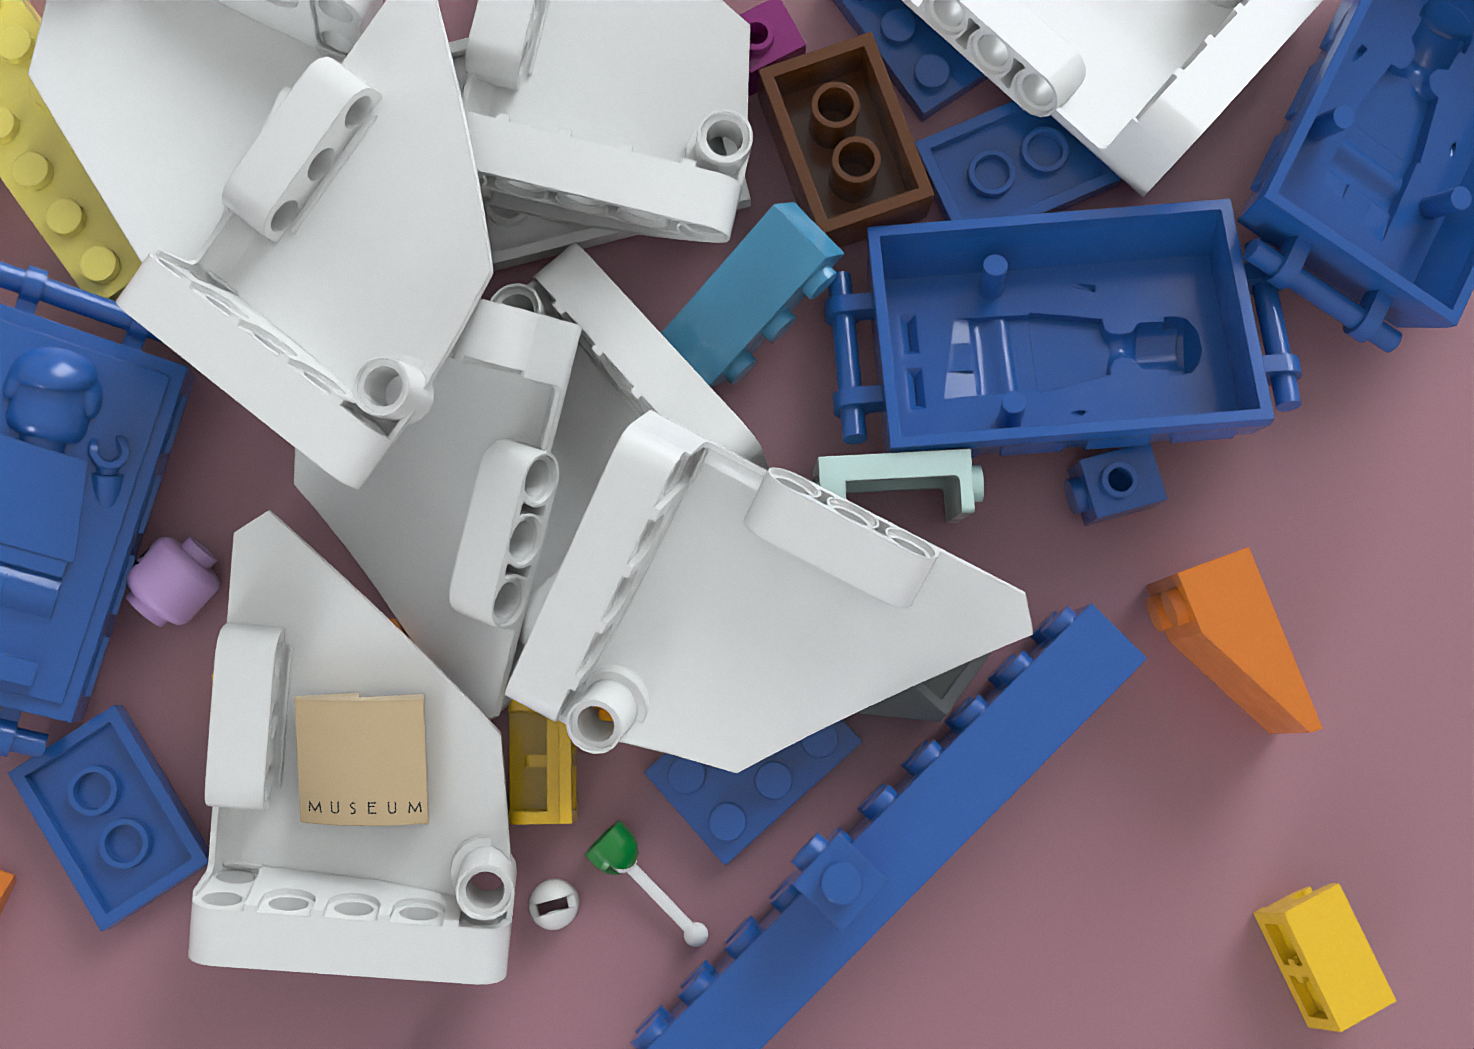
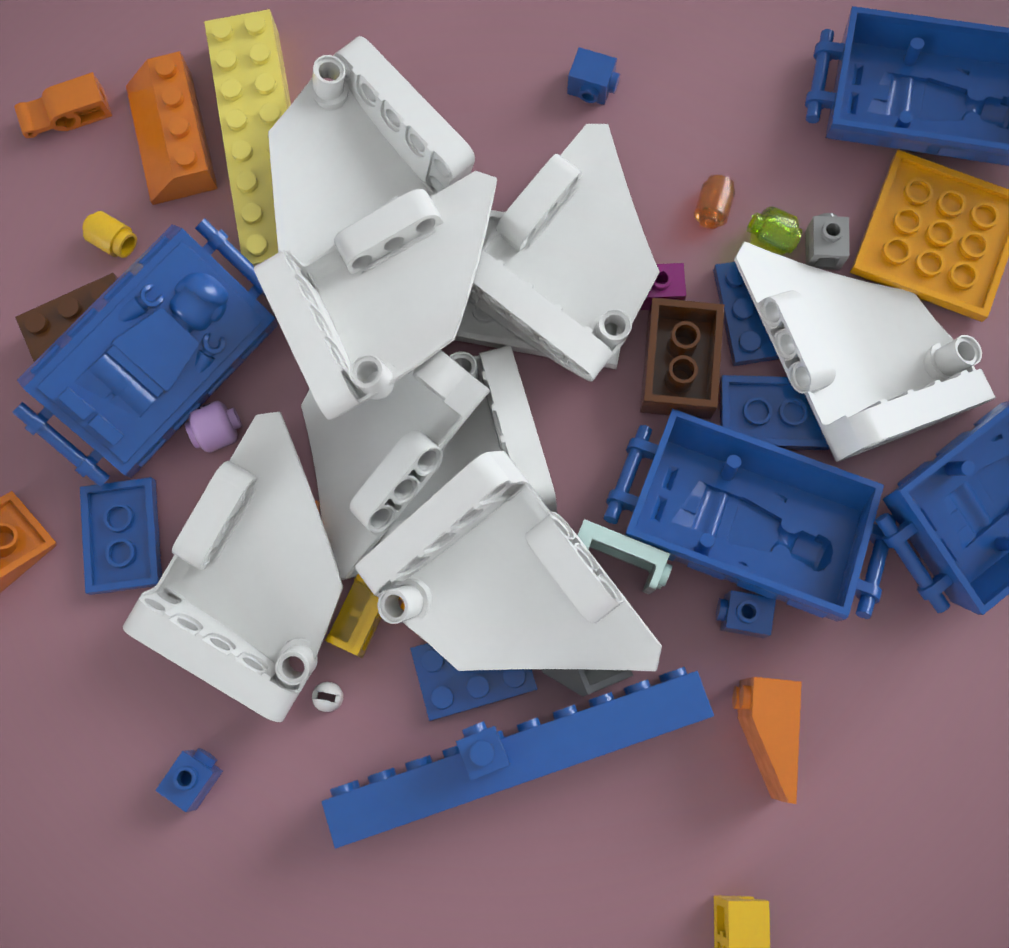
camera: 30 degrees right, 5 degrees down
(361, 759) = (263, 567): tan slope -> none
(617, 853) = (374, 686): hinge -> none
(754, 294) = (592, 416): dark azure brick -> none

